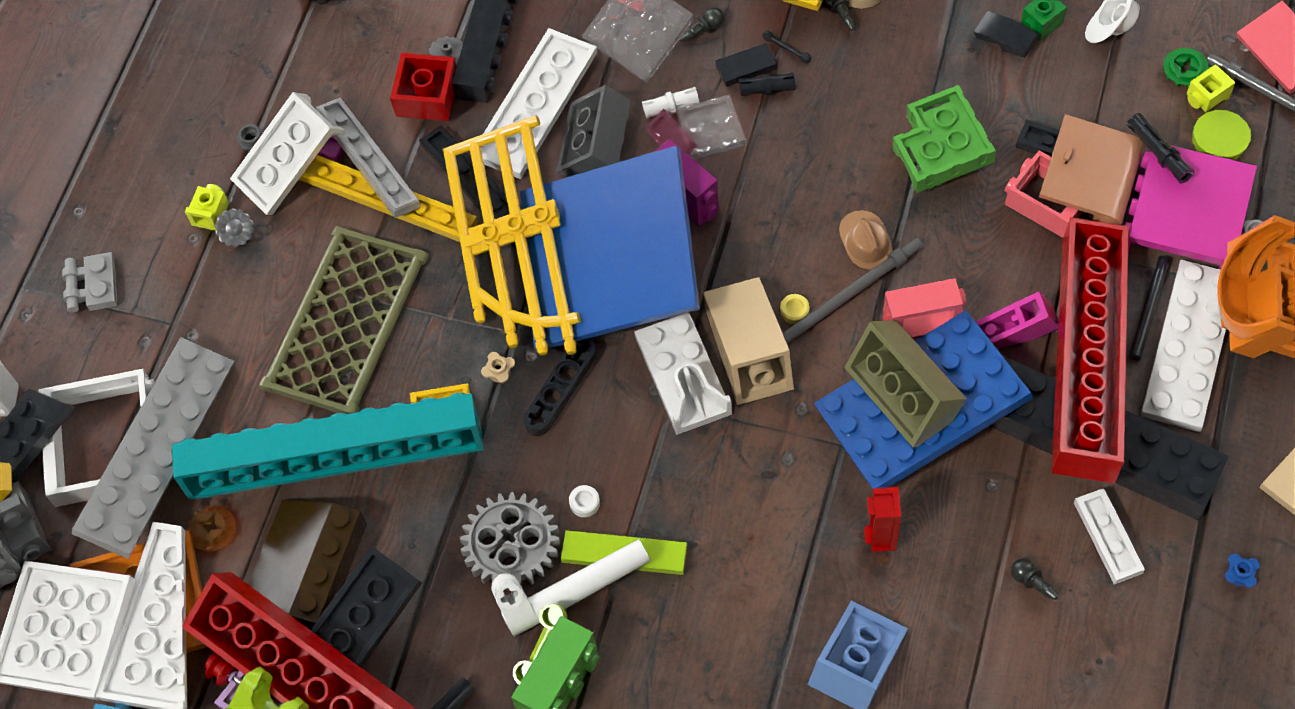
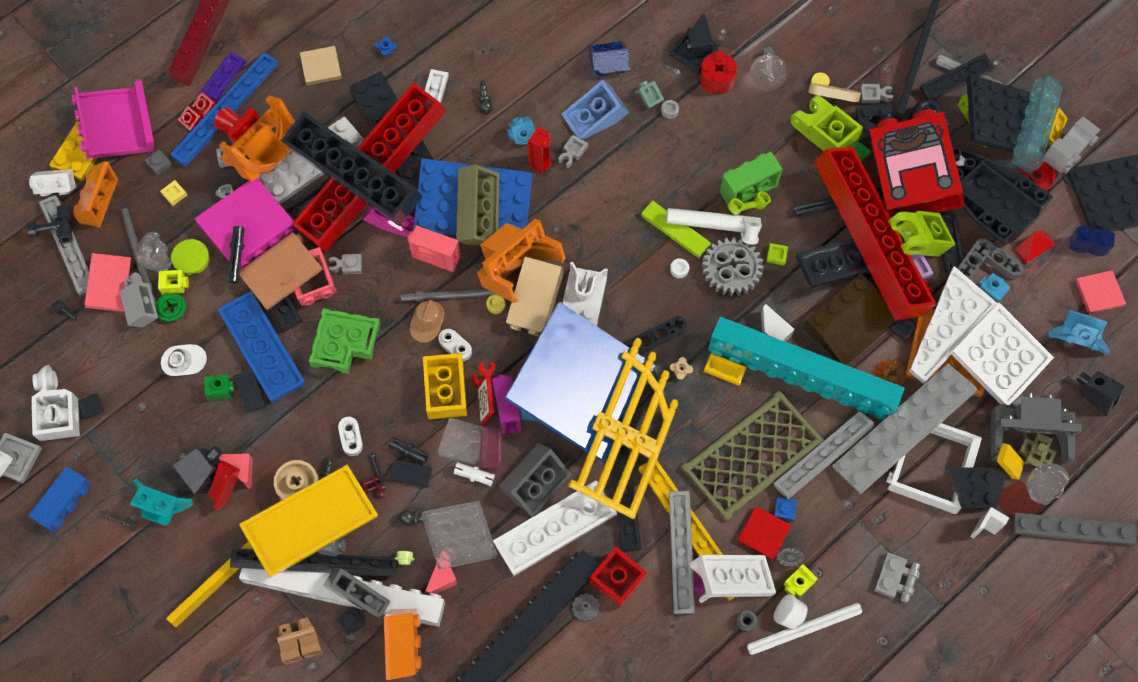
camera: 155 degrees left, 5 degrees up
(177, 168) = (804, 628): none -> white axle
(201, 166) = (790, 612): none -> white hair
(251, 362) = (823, 455): none -> light grey plate
(269, 281) = (785, 509): none -> blue plate
(280, 239) = (764, 533): none -> red tile
(401, 488) = (774, 325): none -> white slope
(459, 604) = (777, 254): none -> lime tile
(727, 185) = (484, 391): none -> red flag
(777, 164) = (444, 386): none -> yellow brick
(781, 15) = (372, 488): none -> dark red piece
(806, 231) = (455, 343): none -> white plate
(822, 353) = (506, 252): none -> orange piece
(847, 579) = (573, 149): none -> light grey plate
(849, 58) = (350, 437): none -> white plate
(939, 554) = (520, 130): none -> dark azure brick
(1021, 246) = (349, 264): none -> light grey plate
(1034, 85) = (261, 347): none -> blue plate
(1104, 300) = (352, 168): none -> black brick
(1226, 40) = (138, 302): none -> light grey brick
(1262, 100) = (152, 253): none -> clear piece

